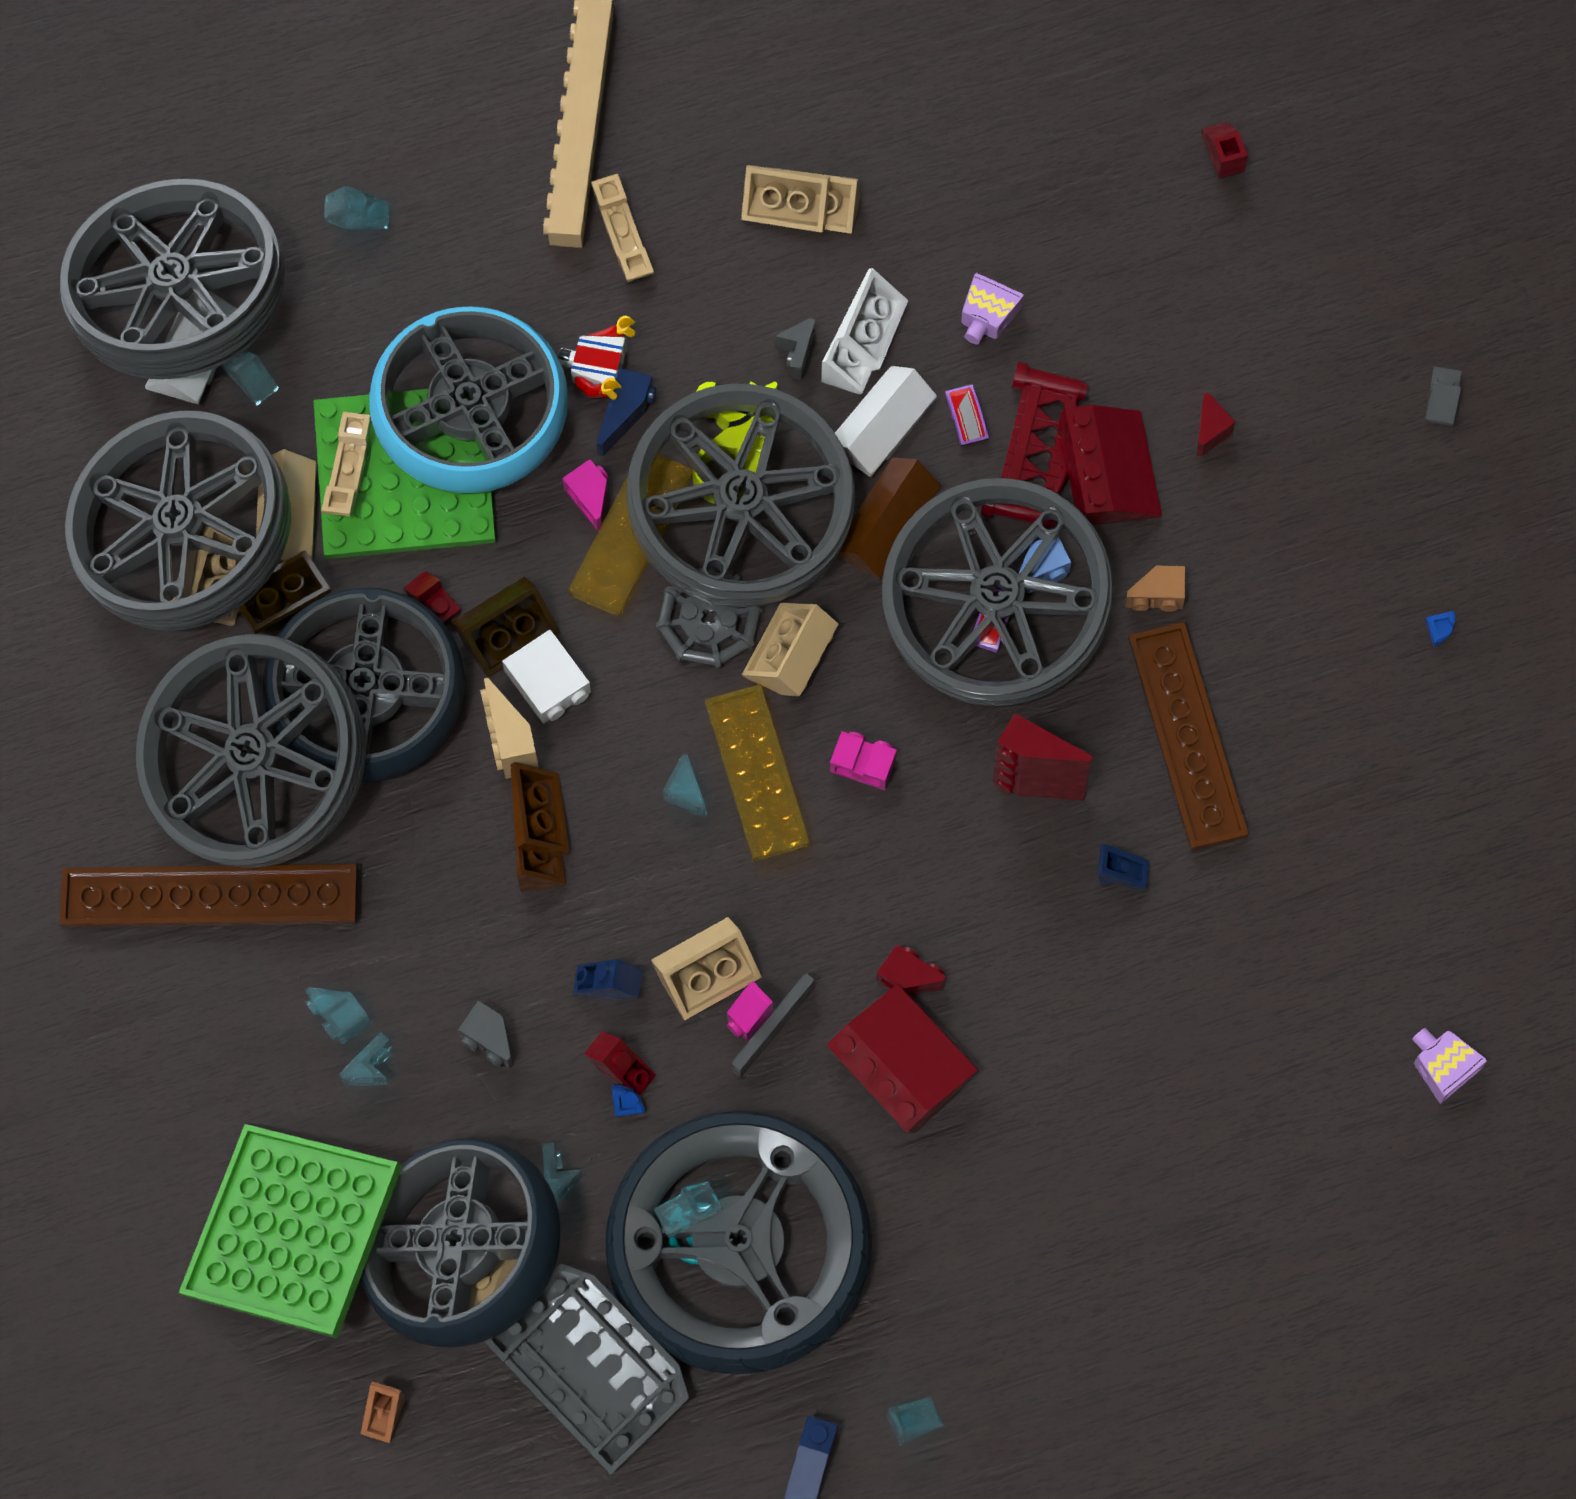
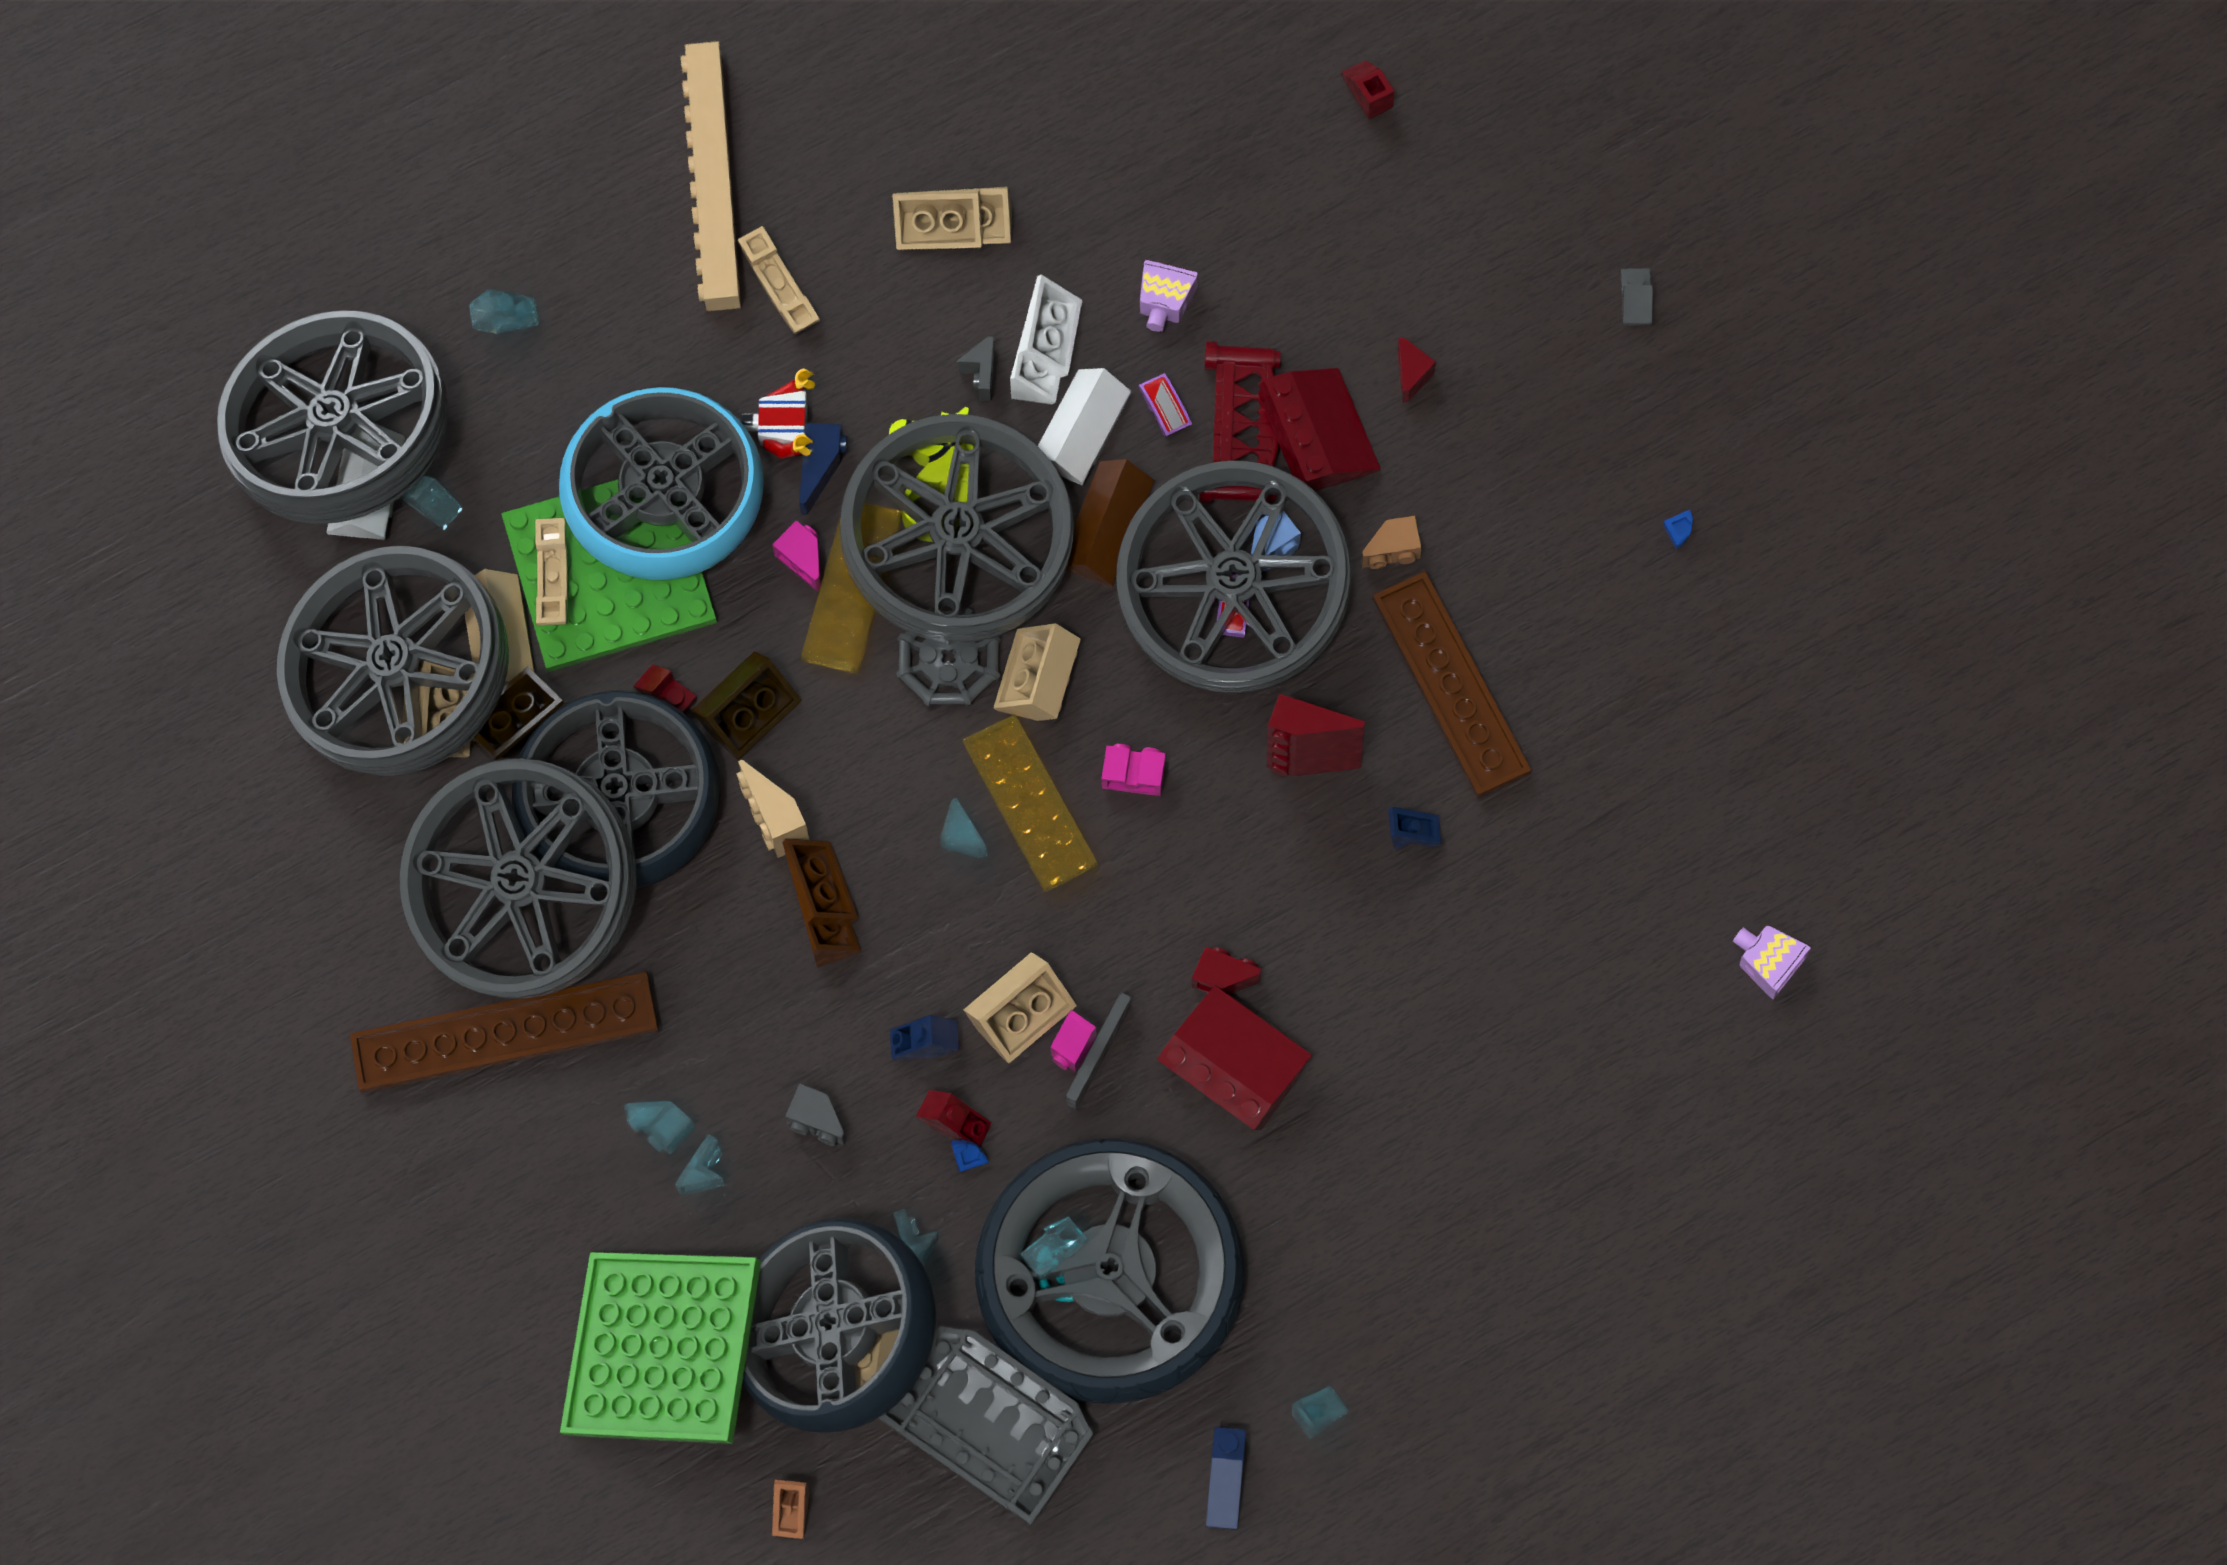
camera: 10 degrees left, 0 degrees up
(547, 677) = (798, 748): white brick -> none

